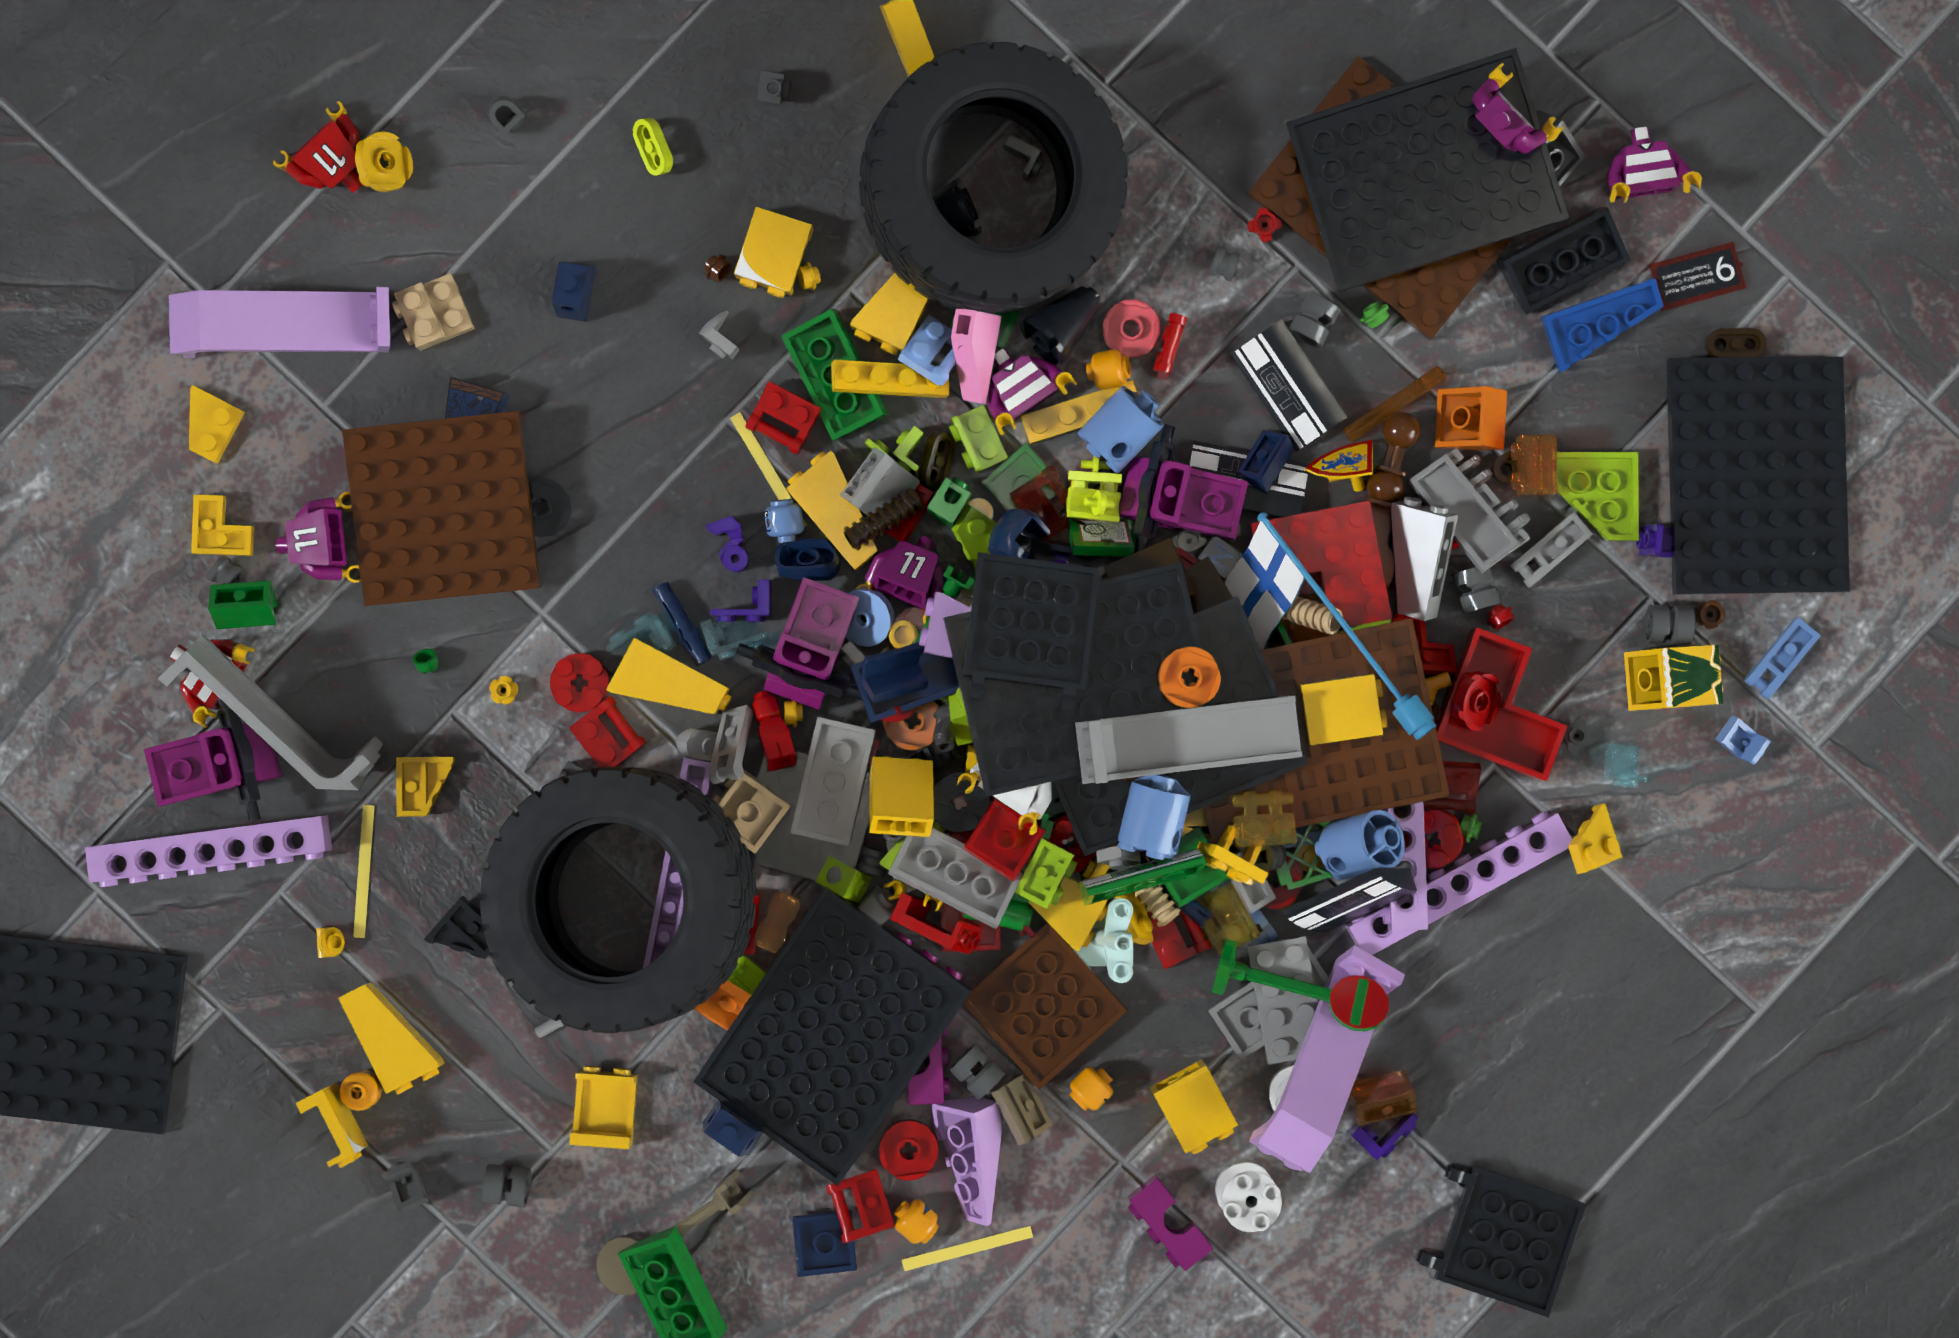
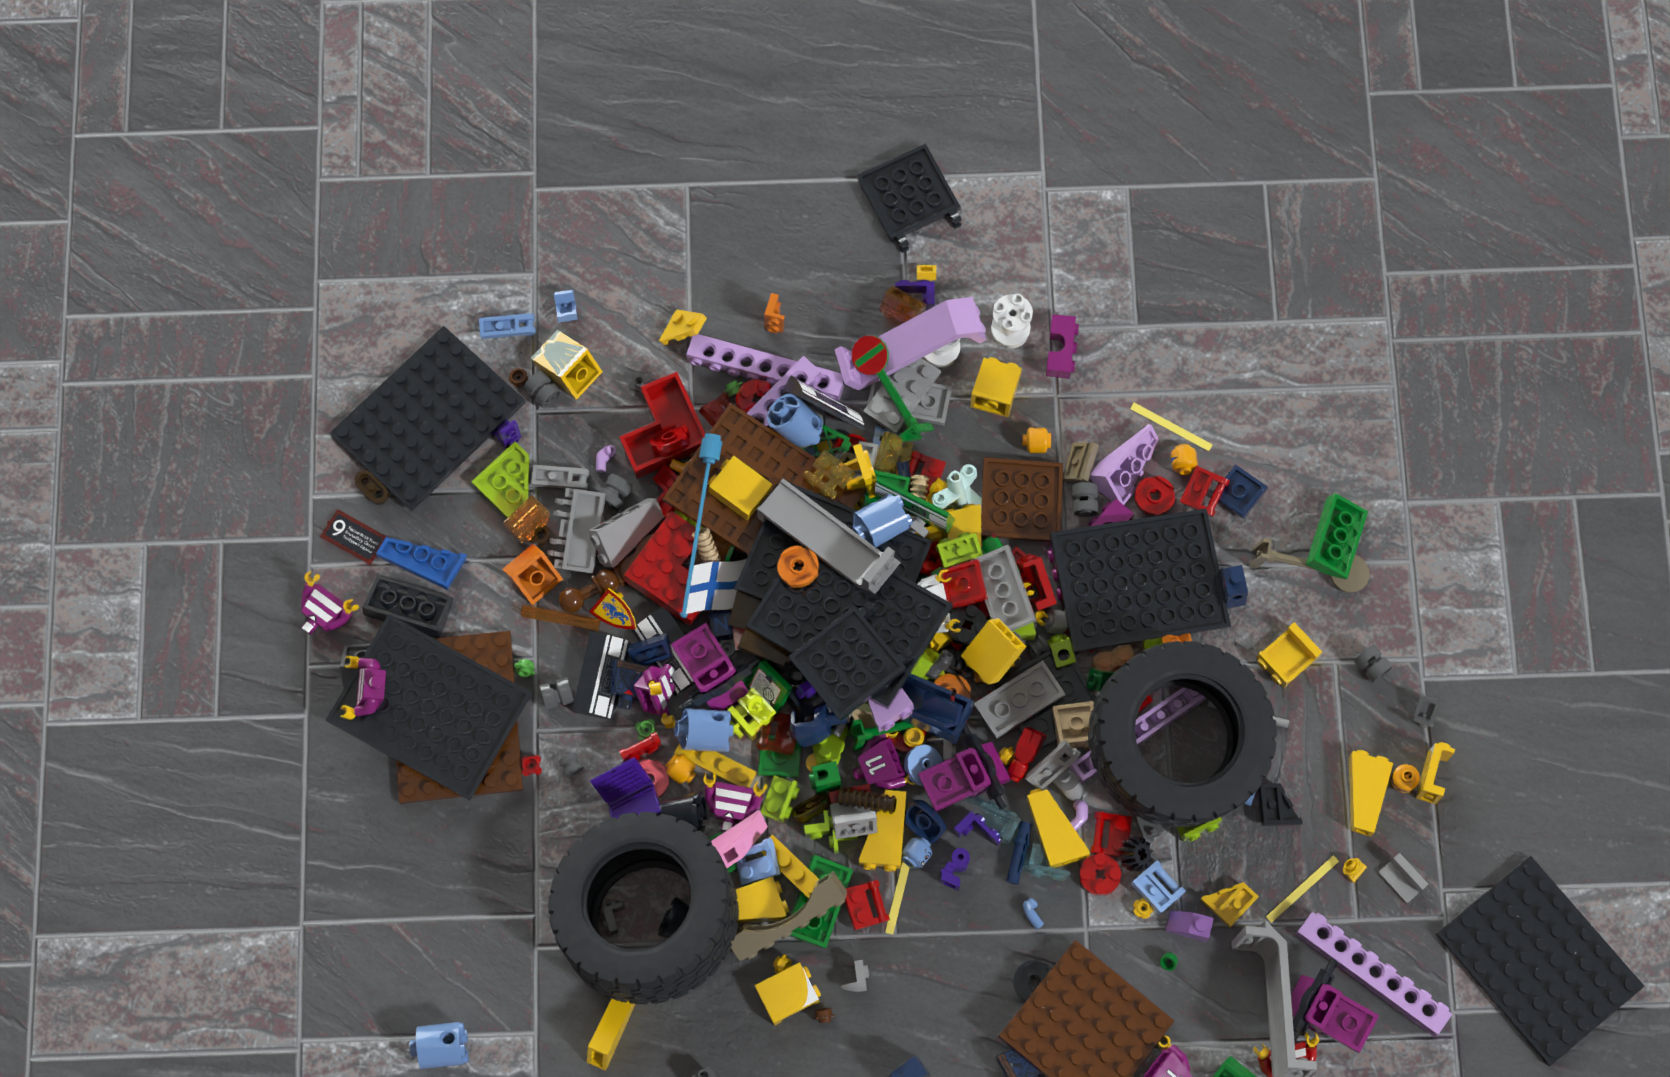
camera: 135 degrees left, 15 degrees down
(270, 981) = (1403, 878): none -> light grey panel
(439, 718) = (1189, 925): none -> medium lavender slope
(507, 717) = (1154, 891): none -> light blue plate
(560, 736) = (1135, 854): none -> black gear
(608, 571) = (1031, 915): none -> medium blue arm
(657, 726) = (1081, 813): none -> lavender arm
(769, 882) = (1097, 679): none -> dark green bracket
(859, 271) = (752, 938): none -> dark tan arch
(1131, 290) = (627, 789): none -> dark purple piece
(1193, 372) = (641, 726): none -> bright green plate
(1214, 419) = (655, 691): none -> magenta torso
(1251, 405) = (623, 680): none -> torso
(1397, 1165) = (926, 272): none -> yellow plate
(1500, 616) = (617, 469): red plate -> none
(1511, 948) = (772, 319): none -> orange bracket
(1530, 617) = (603, 456): none -> lavender arm
(1622, 765) = (634, 348): clear light blue bracket -> none

